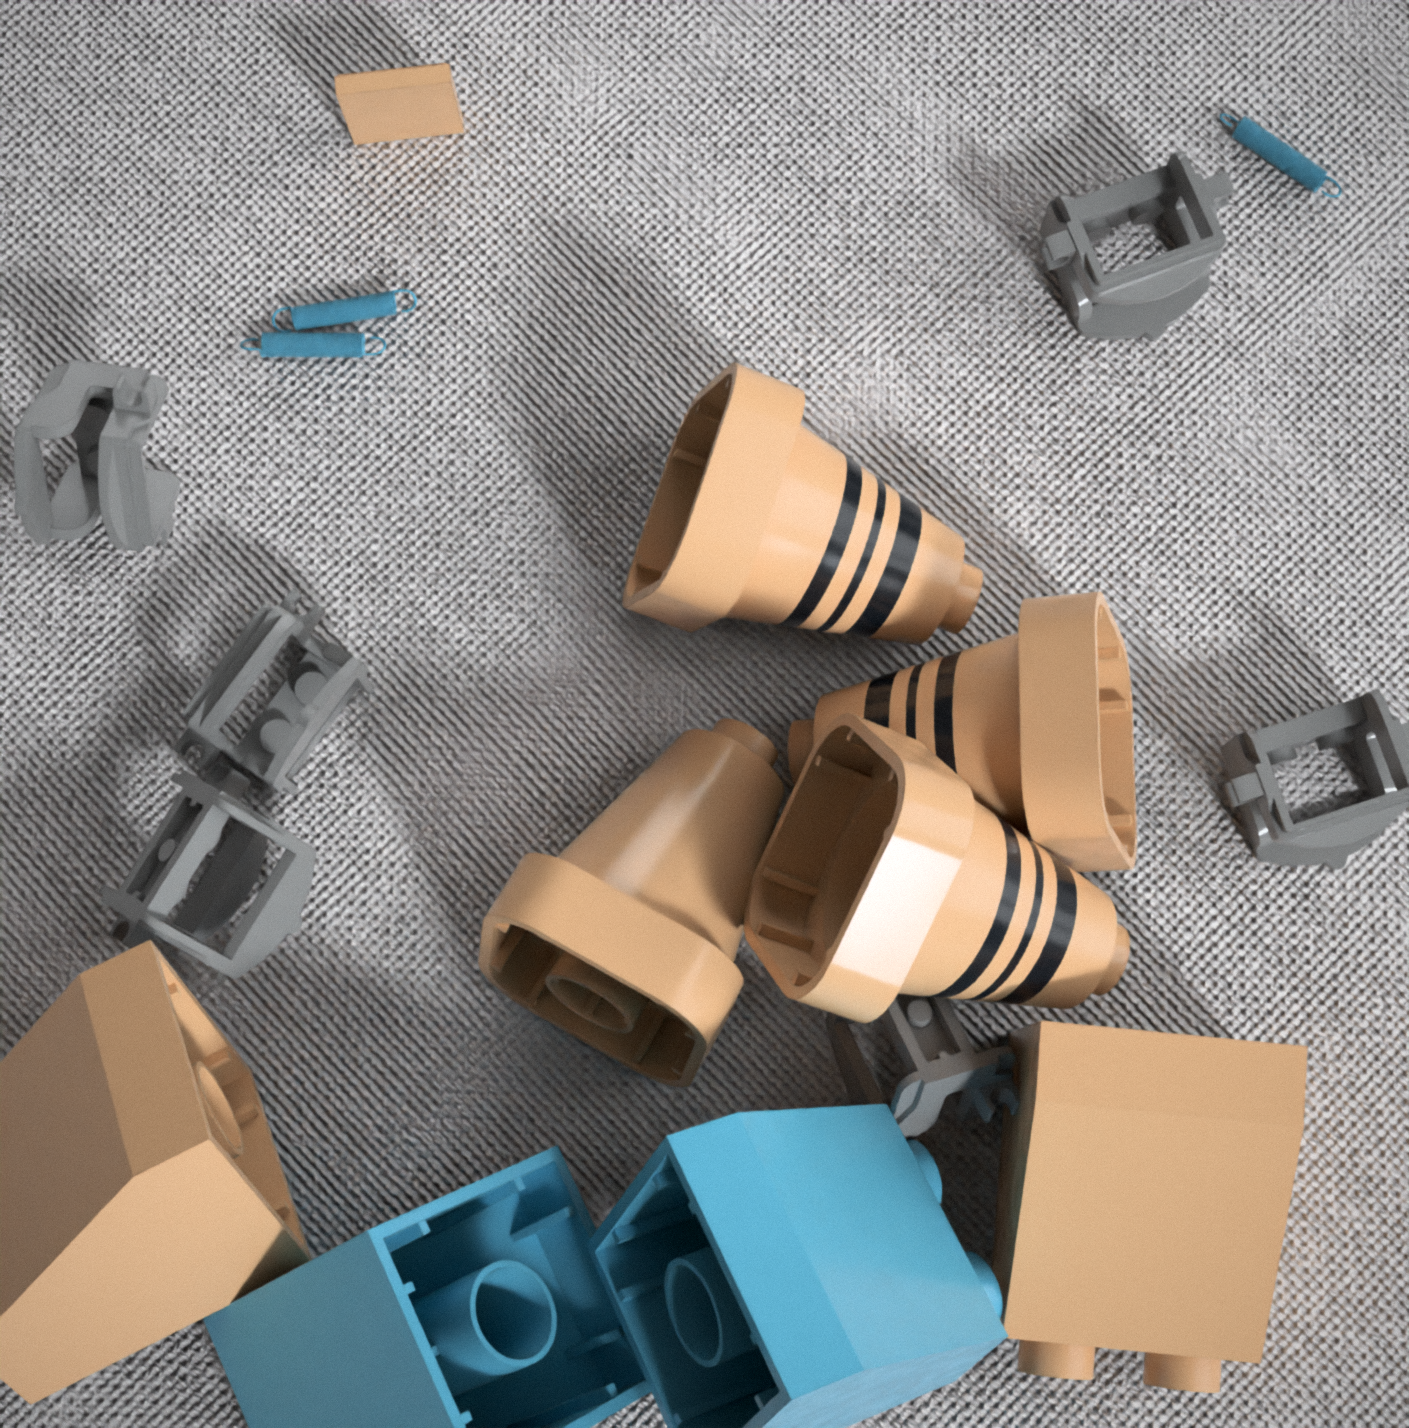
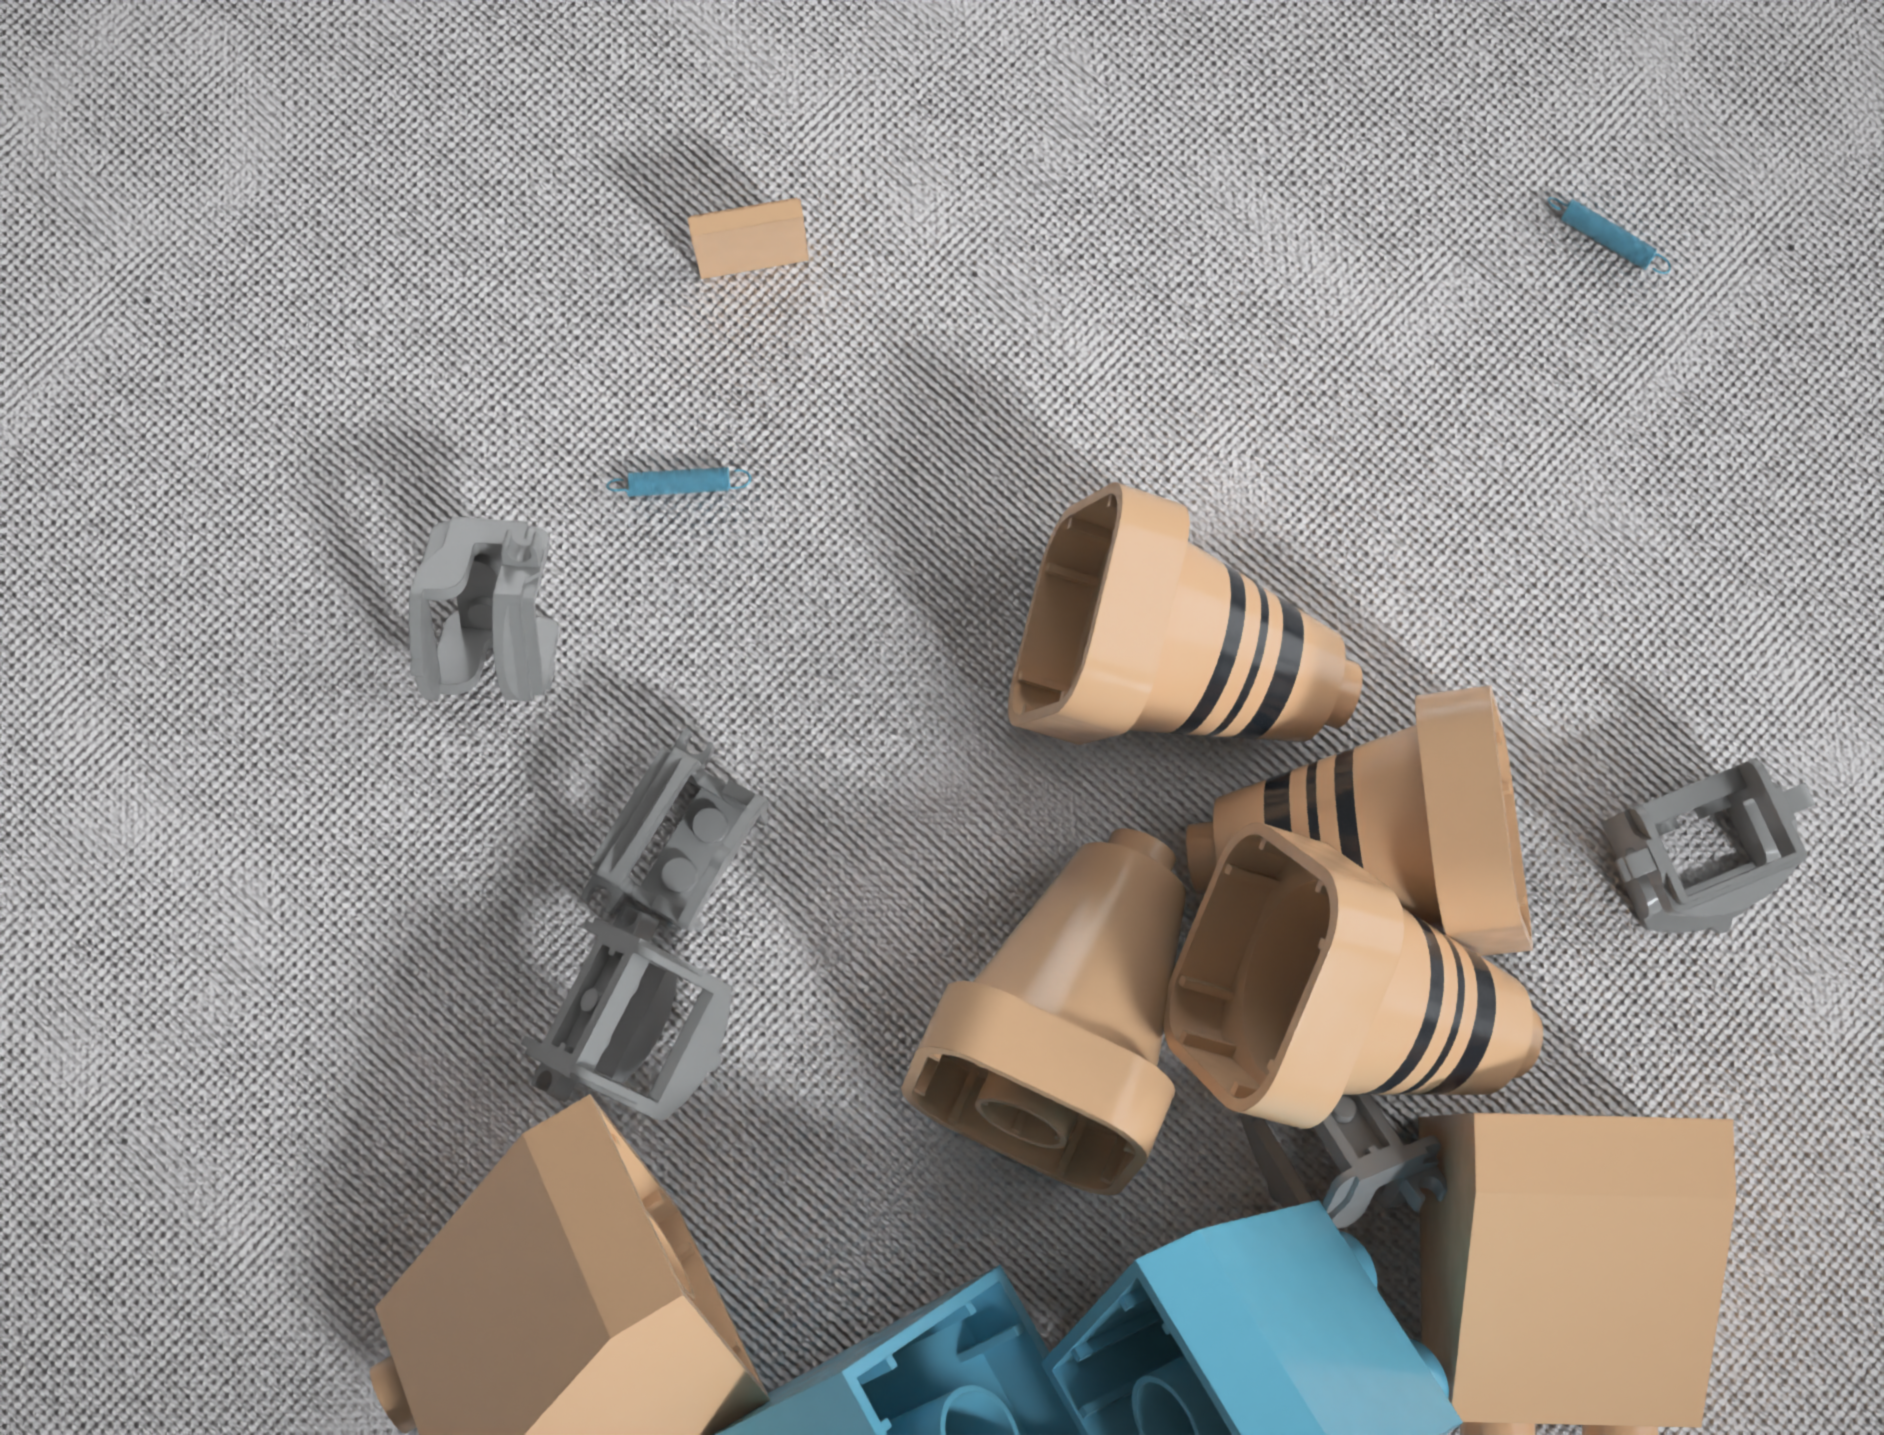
camera: 10 degrees left, 0 degrees up
(343, 310) = (706, 445): medium azure piece -> none
(1151, 292) = (1502, 380): light grey animal -> none

